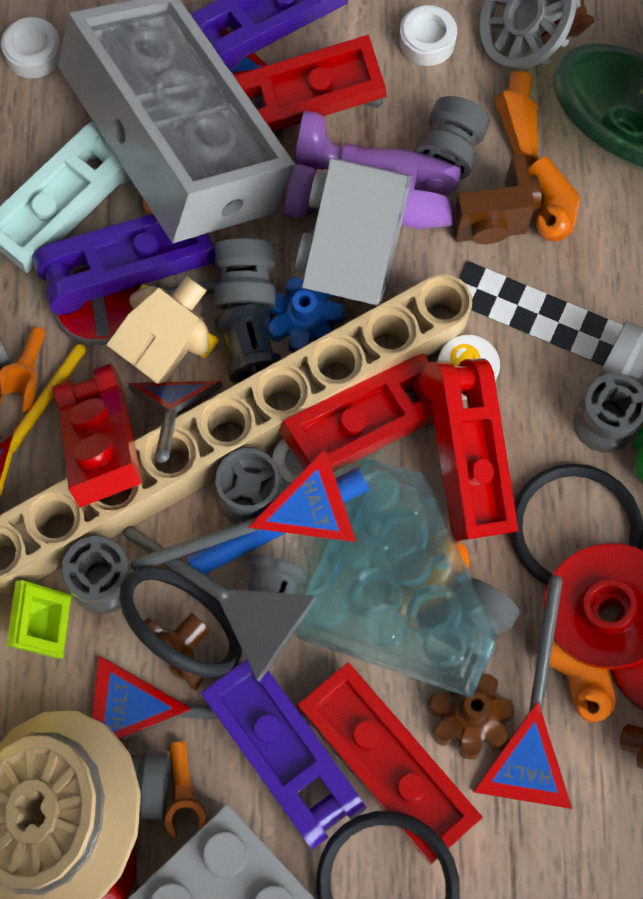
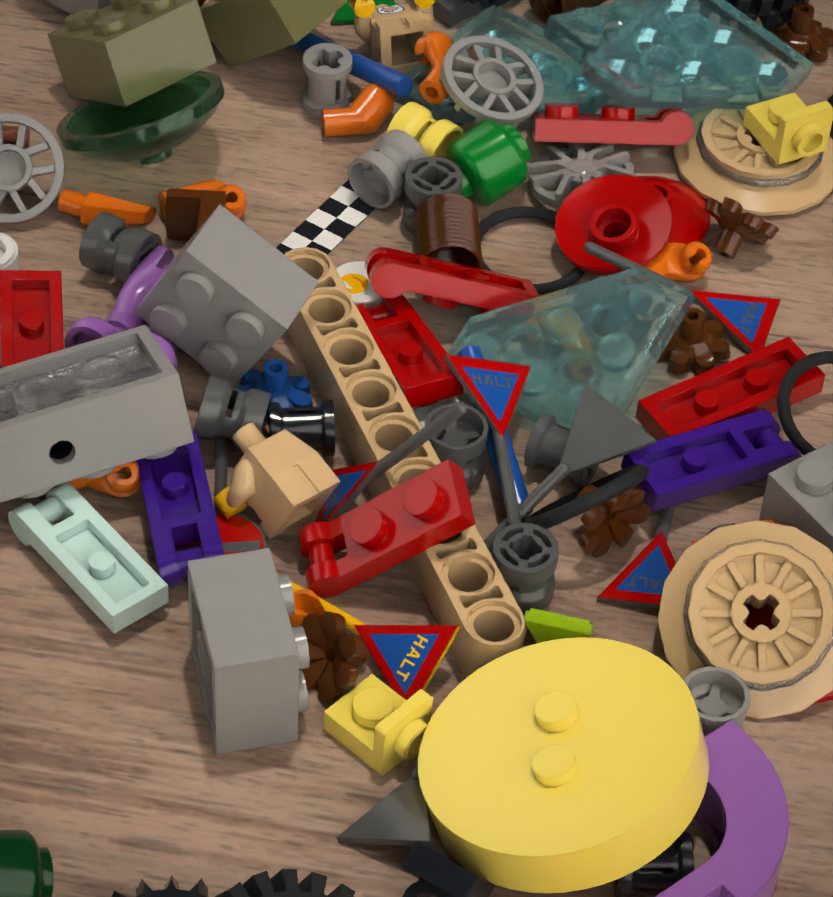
camera: 80 degrees left, 25 degrees down
(547, 437) = (449, 230): none -> reddish brown piece

